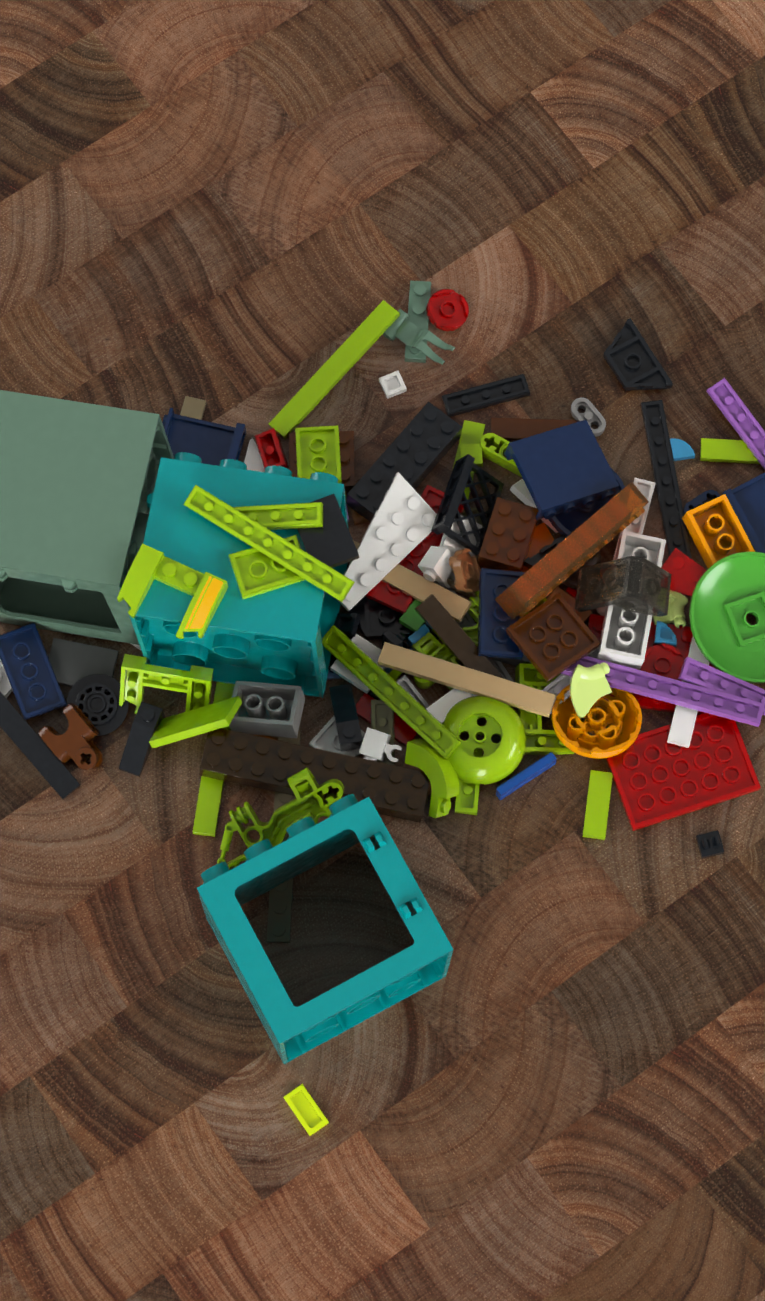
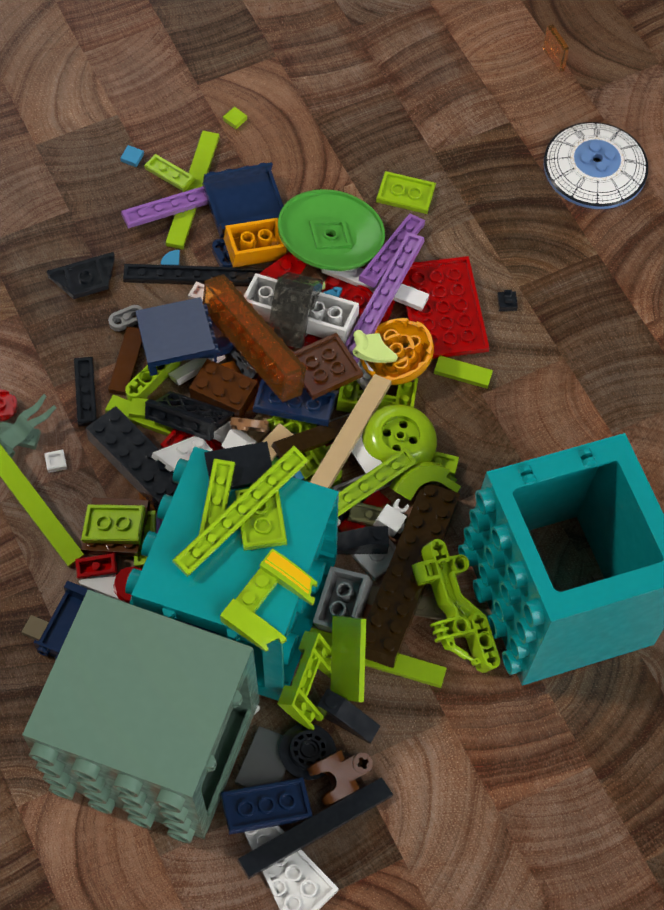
camera: 85 degrees left, 10 degrees down
(526, 775) = (430, 411): blue tile -> none

